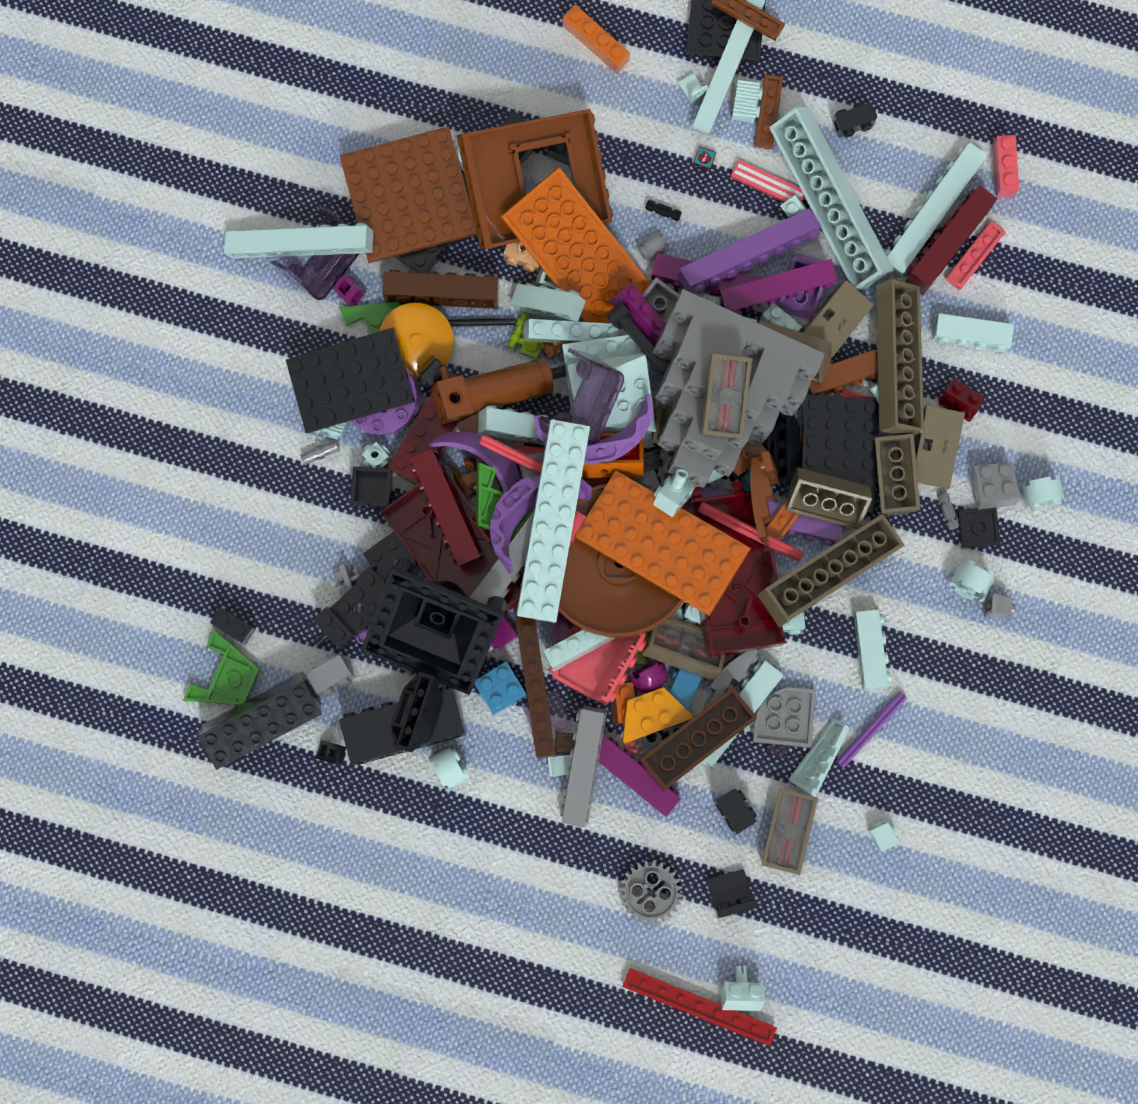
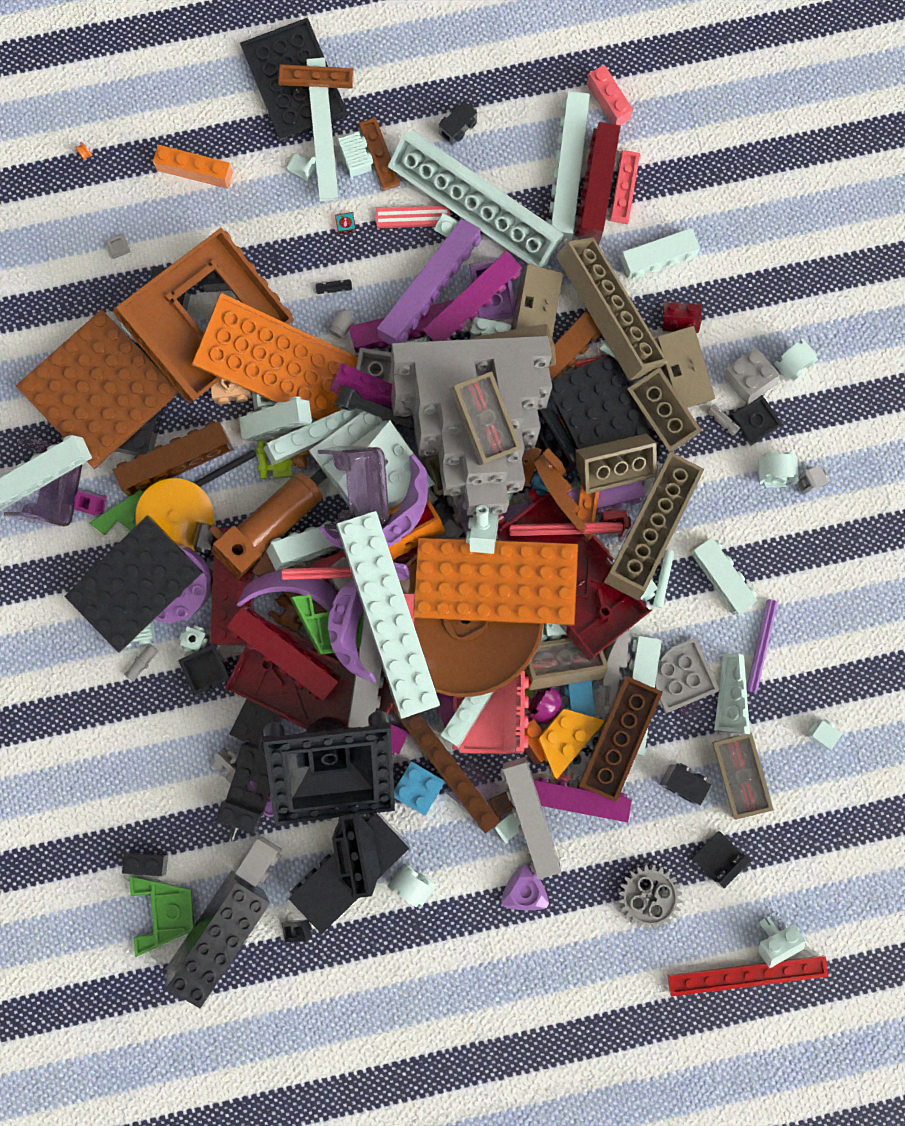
camera: 35 degrees left, 0 degrees up
(492, 75) = (118, 246): none -> light grey tile
(544, 828) = (525, 891): none -> medium lavender hat
(800, 543) = (614, 515): none -> dark red bracket
(816, 623) = (663, 579): none -> light aqua piece

